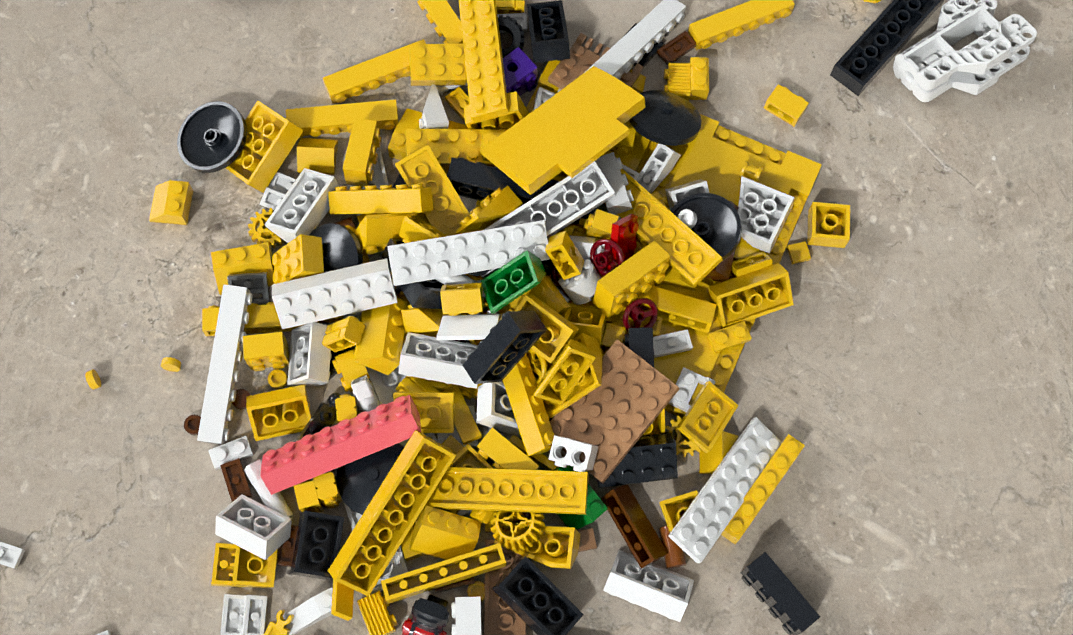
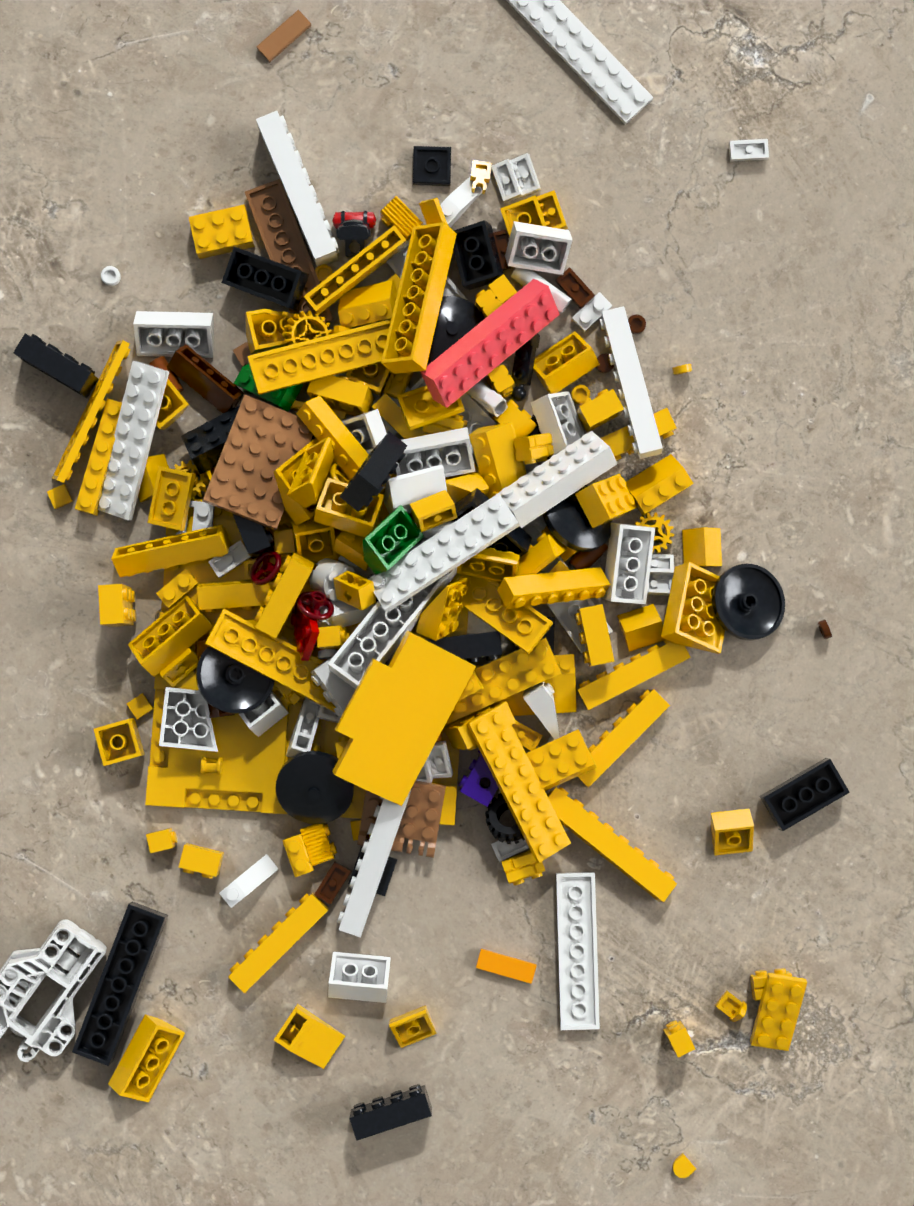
camera: 155 degrees right, 15 degrees up
(93, 379) = (745, 328): yellow tile -> none
(157, 93) = (824, 629): none -> reddish brown tile
(171, 203) = (756, 522): yellow slope -> none
(231, 201) = (702, 546): none -> yellow slope
(255, 283) = (644, 468): dark grey plate -> none
(548, 31) = (466, 841): black brick -> none
(574, 449) = (278, 412): white brick -> none
(688, 218) = (253, 679): white tile -> none
(724, 369) = (171, 551): none -> yellow brick
(751, 74) = (248, 881): none -> white slope
(756, 538) = (95, 403): none -> yellow plate
(792, 338) = (116, 605): none -> yellow brick
(815, 469) = (59, 496): none -> yellow tile
(816, 133) = (161, 840): none -> yellow brick

